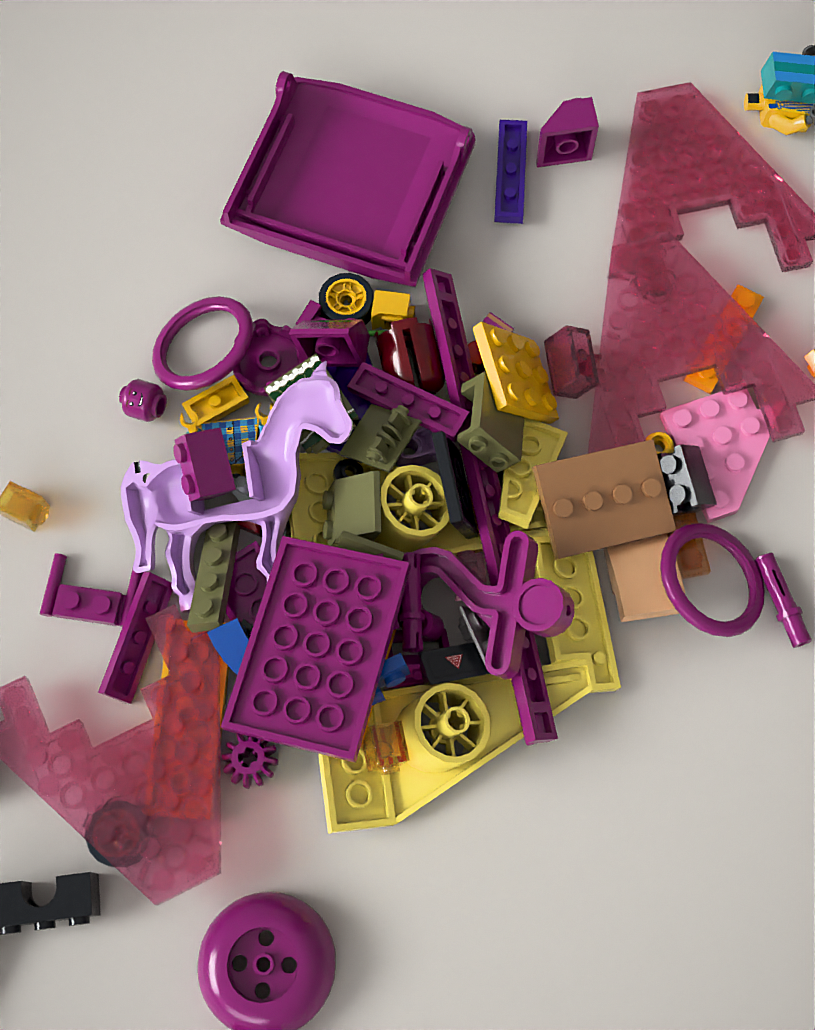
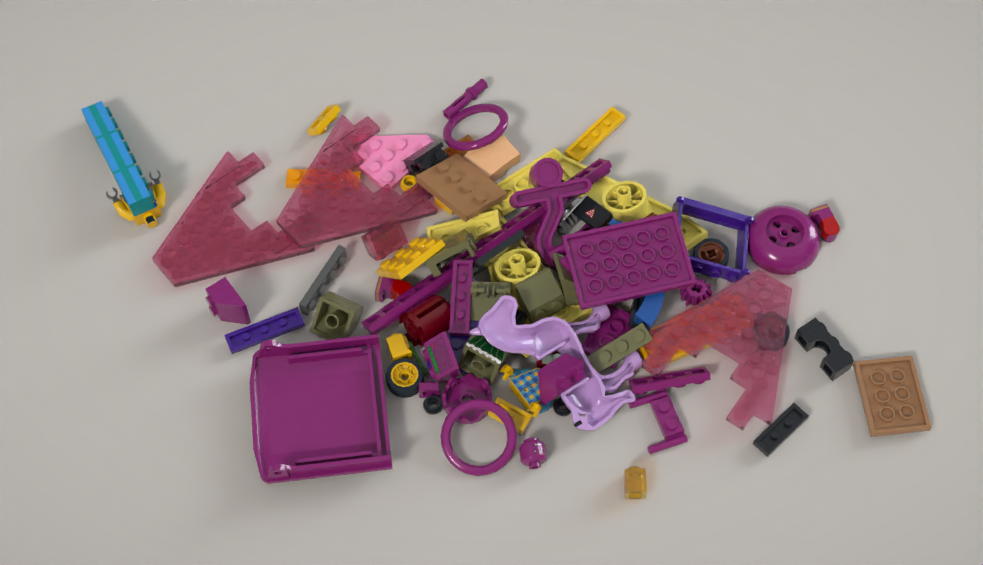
camera: 120 degrees left, 10 degrees down
(279, 822) = (713, 247): none -> wheel
(285, 313) = (433, 399): none -> black plate
(358, 859) = (721, 217): none -> dark purple window
(483, 258) = (335, 316): none -> olive slope
(555, 272) = (321, 282): none -> dark grey plate
(616, 768) = (595, 135): none -> yellow plate

